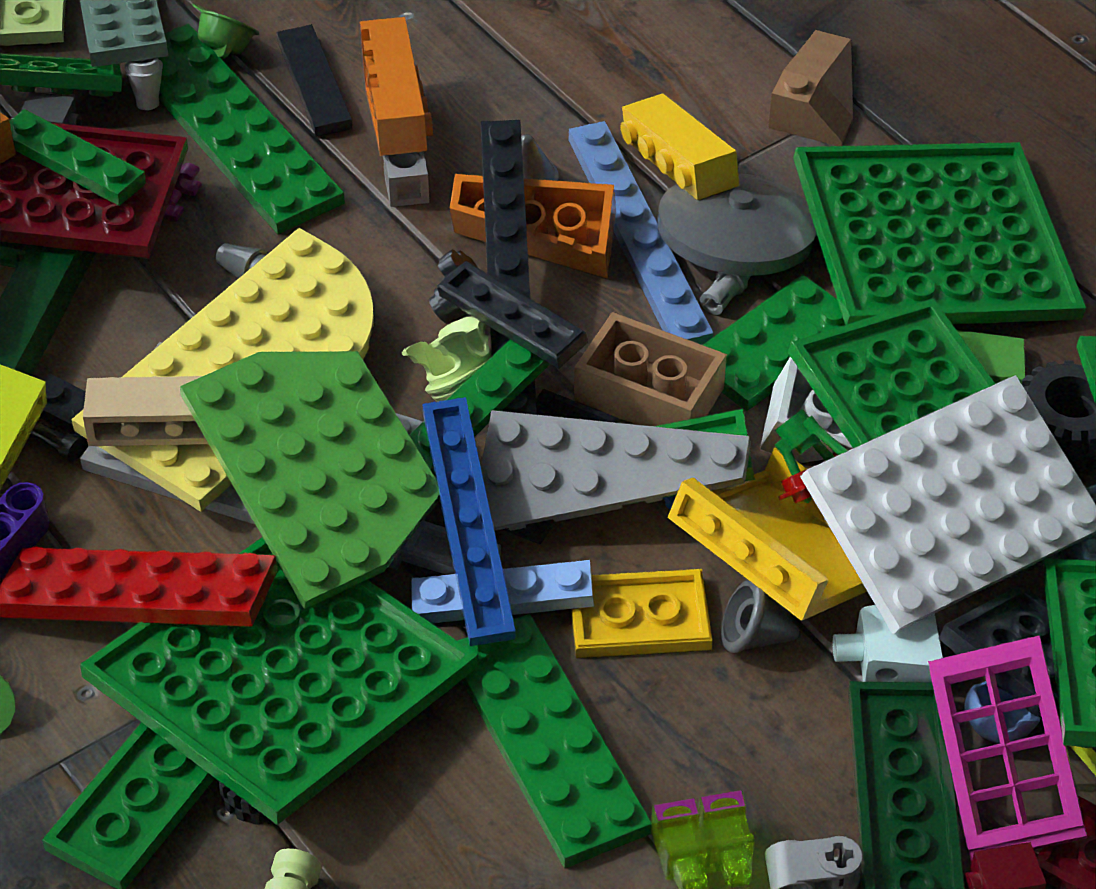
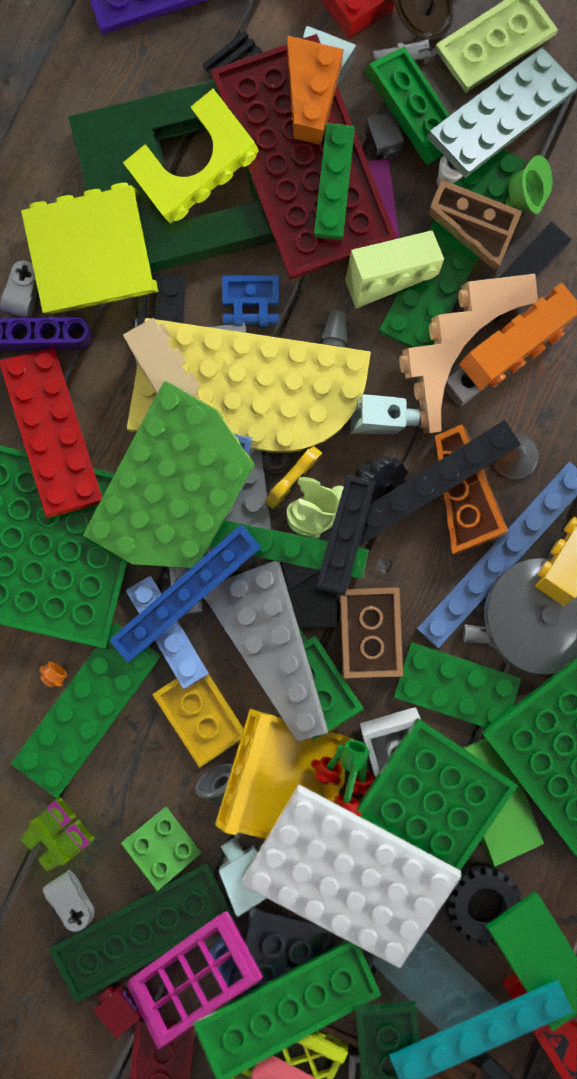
camera: 60 degrees right, 35 degrees up
(126, 318) = (250, 291): none -> blue plate
(213, 169) = (392, 266): none -> yellowish green wedge
(226, 71) = (475, 221): none -> medium nougat wedge
(355, 177) = (432, 363): none -> light nougat arch
(385, 255) = (382, 415): none -> light aqua torso
(391, 358) = (304, 464): none -> yellow helmet
(470, 749) = (52, 674): none -> orange plate
(800, 728) = (161, 848): none -> bright green hinge

